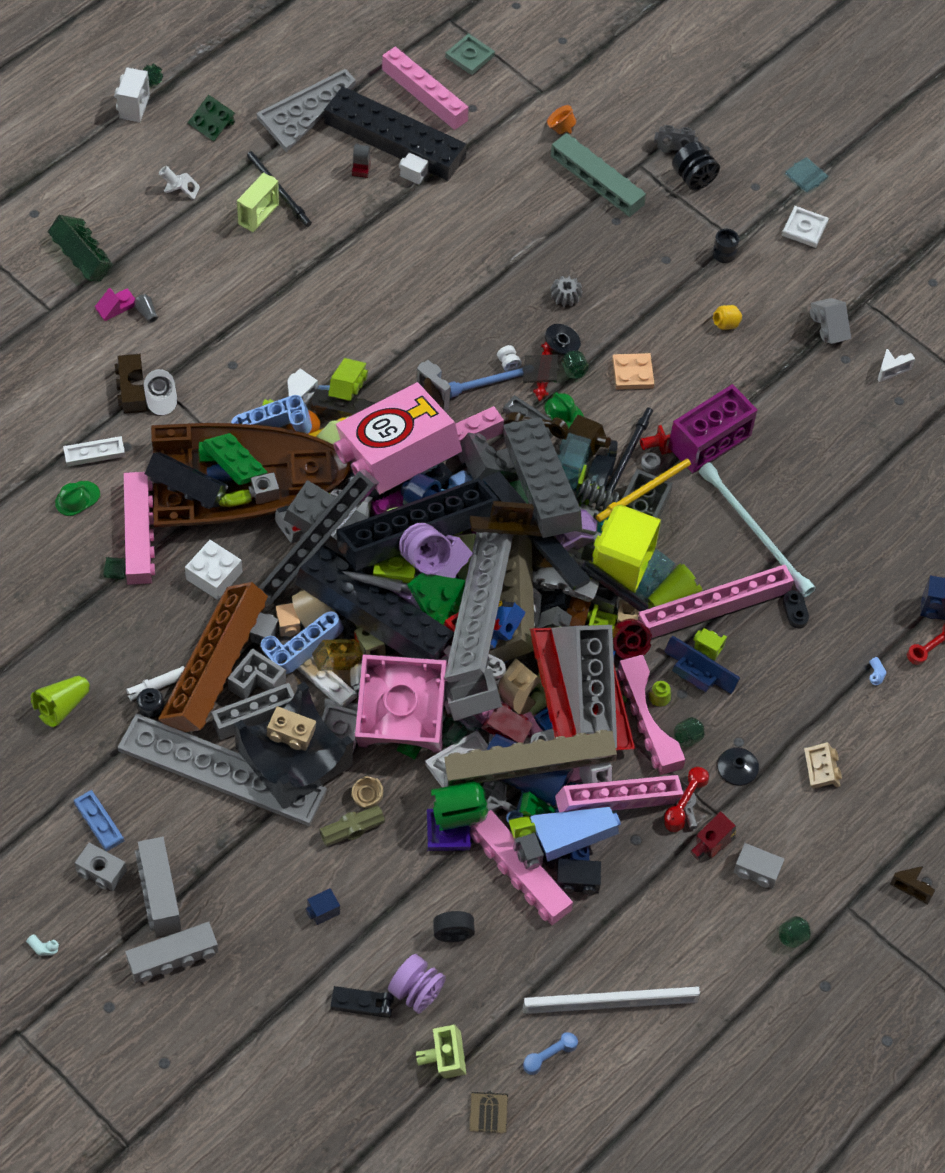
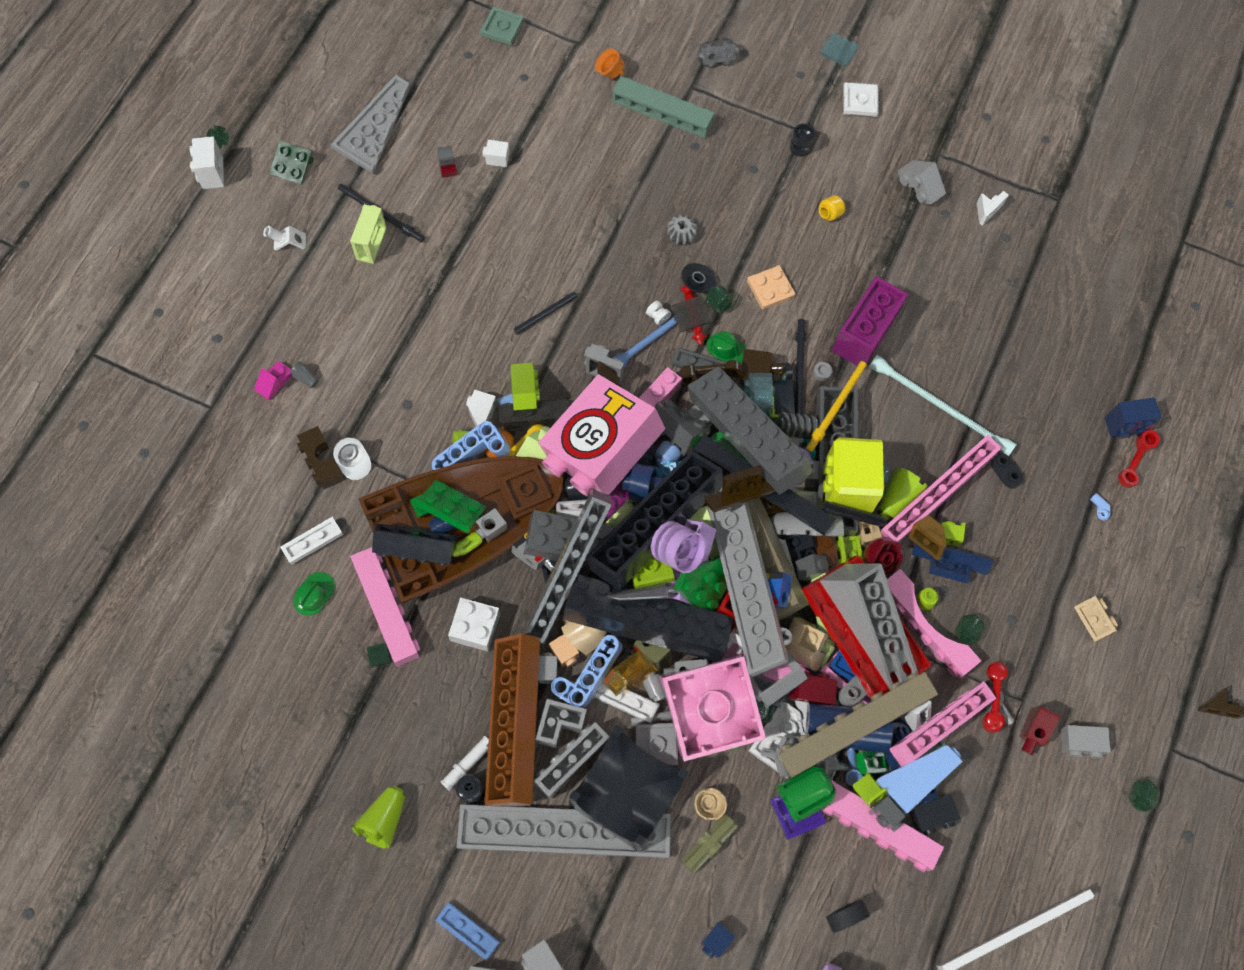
camera: 20 degrees left, 10 degrees up
(80, 247) = (217, 333): clear green wedge -> none
(291, 728) = (620, 775): tan brick -> none
(394, 132) = (464, 123): black brick -> none
(399, 325) = (541, 315): none -> black bar
(425, 88) = (475, 71): bright pink brick -> none
(659, 440) = (823, 347): red bracket -> none
(682, 632) = (929, 536): none -> pearl gold slope
(695, 165) = (746, 71): black wheel -> none
(735, 773) = (1016, 650): black dish -> none

